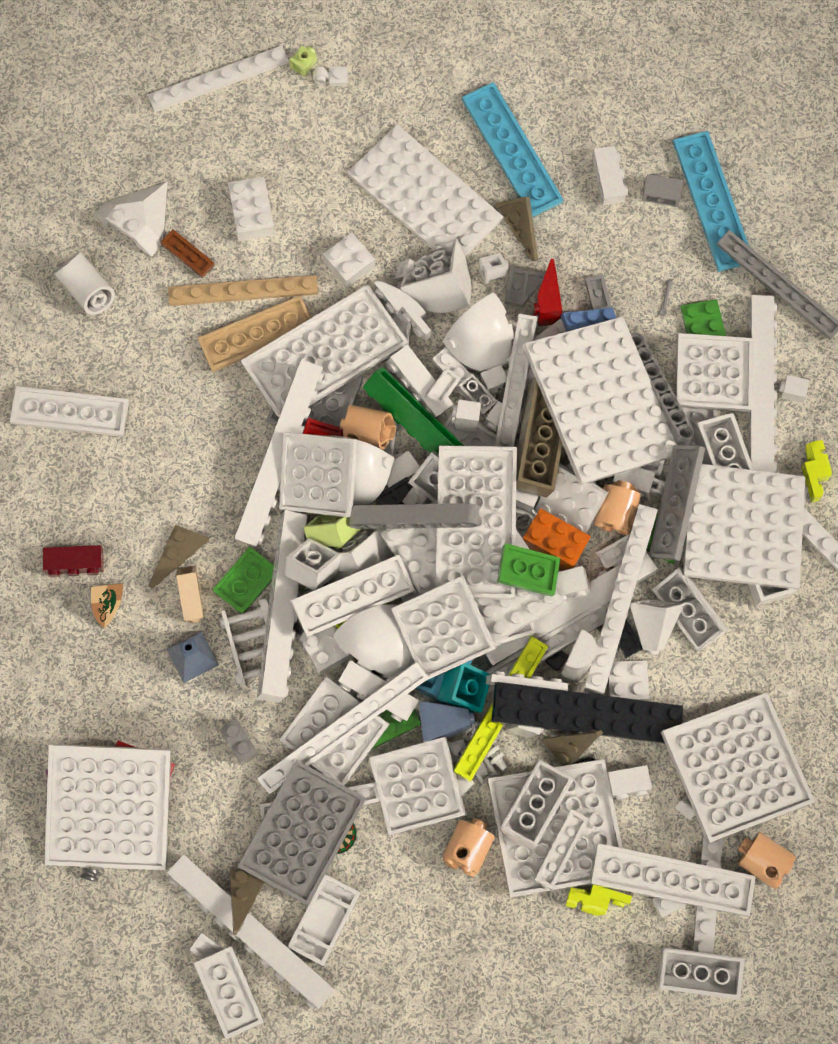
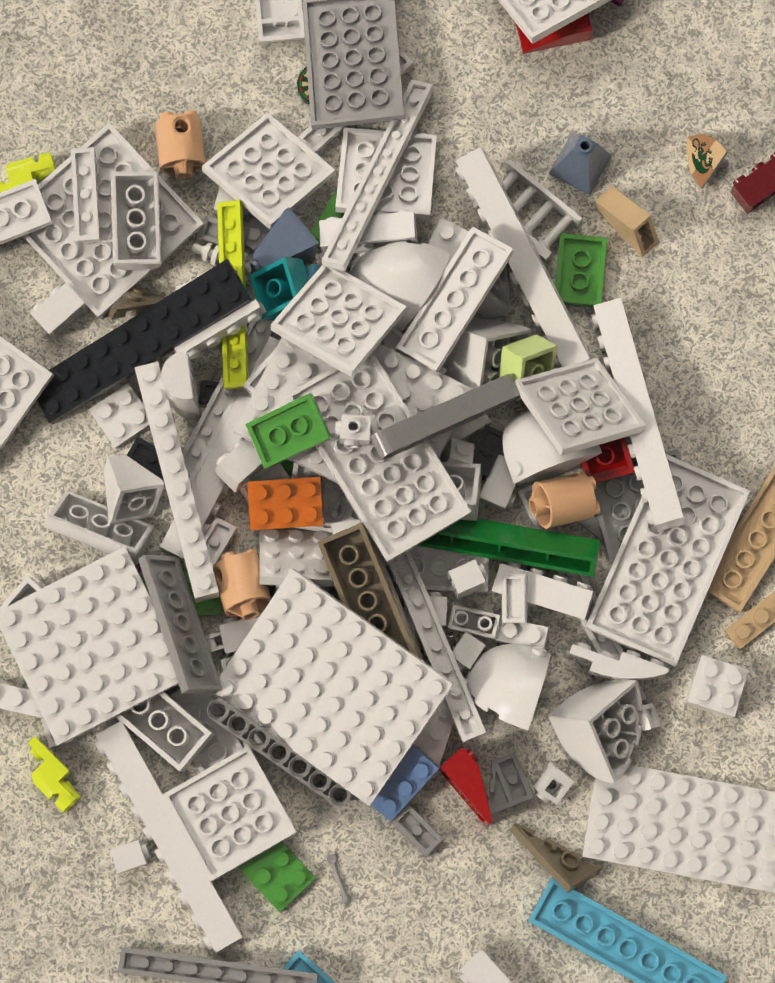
camera: 150 degrees right, 5 degrees up
(178, 549) = (671, 260): dark tan wing -> none
(239, 742) = (474, 107): light grey brick -> none
(312, 564) = (519, 309): white brick -> none
(484, 541) = (353, 430): none -> white brick

